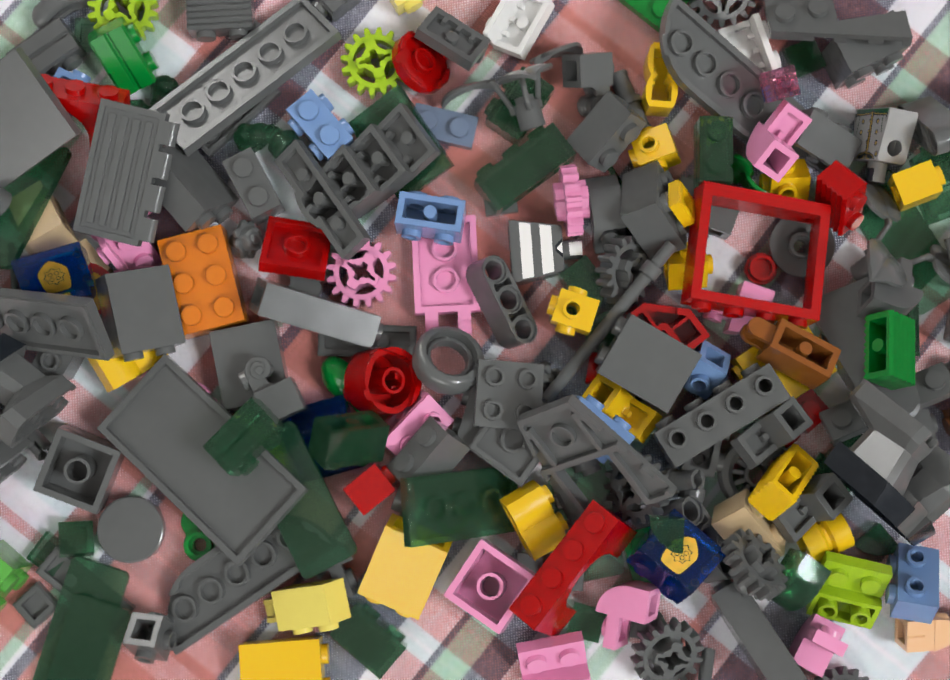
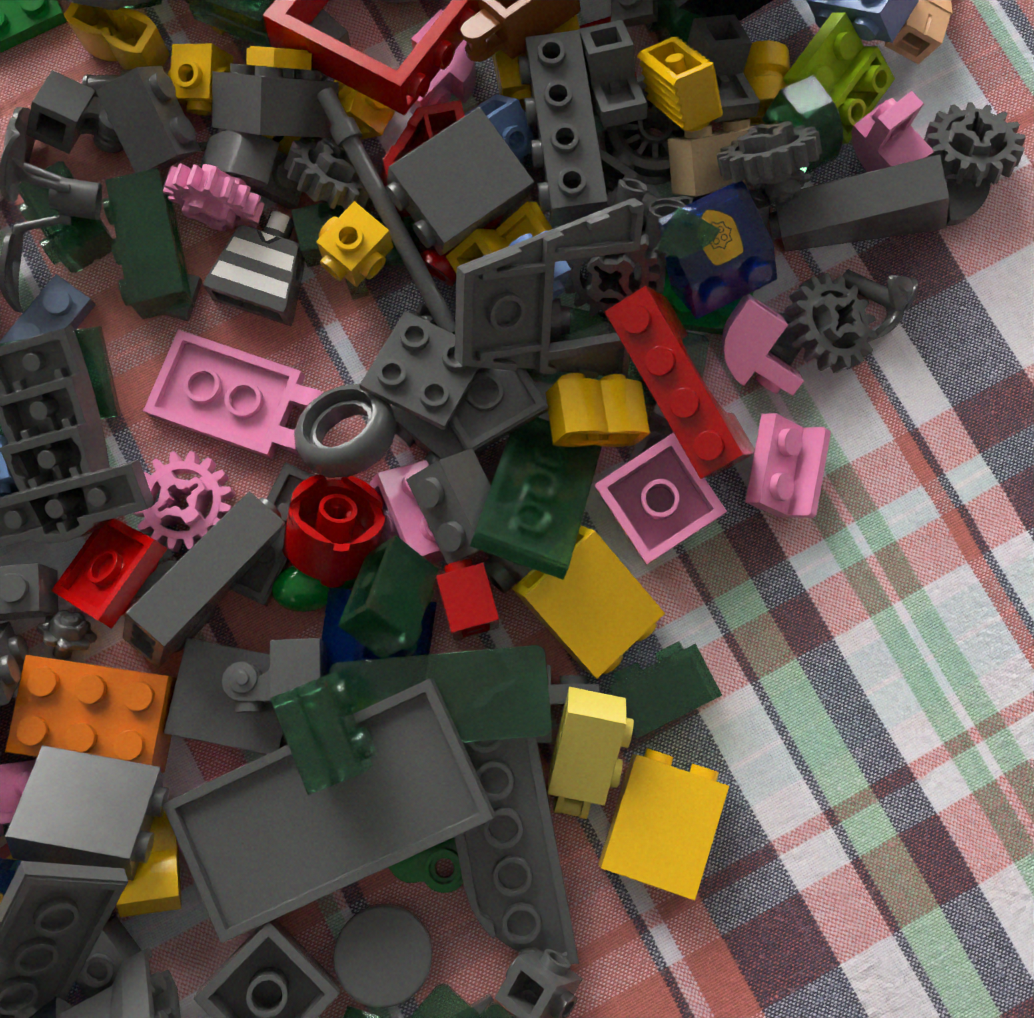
camera: 65 degrees left, 5 degrees down
(430, 217) = (150, 376): medium blue brick -> none
(489, 291) = (302, 338): dark grey beam -> none
(587, 621) = (749, 404): clear green tile -> none
(760, 269) = (404, 22): red plate -> none
(876, 541) = (793, 30): clear green tile -> none

